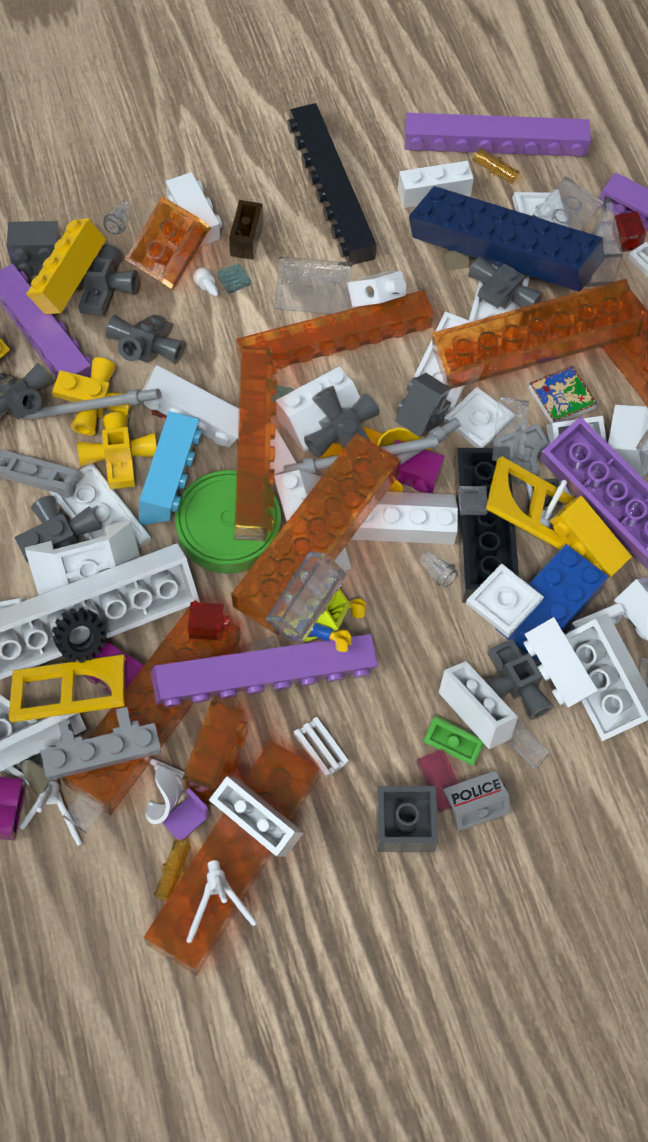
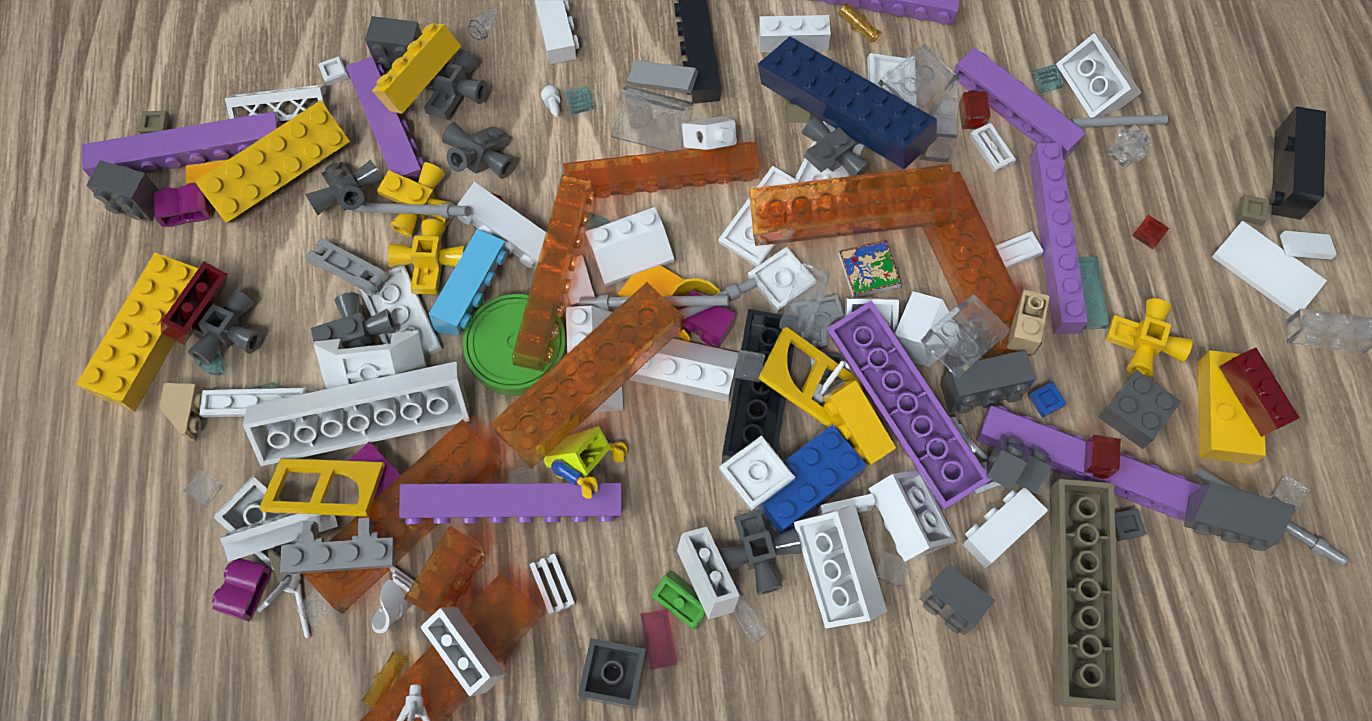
camera: 15 degrees right, 5 degrees up
(88, 647) = (344, 423): black tyre -> none
(167, 242) = (519, 58): clear orange brick -> none
(186, 816) = (407, 631): medium lavender bracket -> none
(207, 621) = (464, 445): clear red brick -> none
(246, 229) = (599, 54): dark brown brick -> none
(306, 596) = (558, 440): clear brick -> none
(315, 242) = (662, 76): none -> light grey tile
(340, 423) = (641, 264): dark grey brick -> none
(424, 405) = (725, 260): dark grey brick -> none
(438, 568) = (706, 426): clear cone -> none
(477, 800) = (687, 666): light grey panel -> none
(559, 663) = (795, 548): white brick -> none

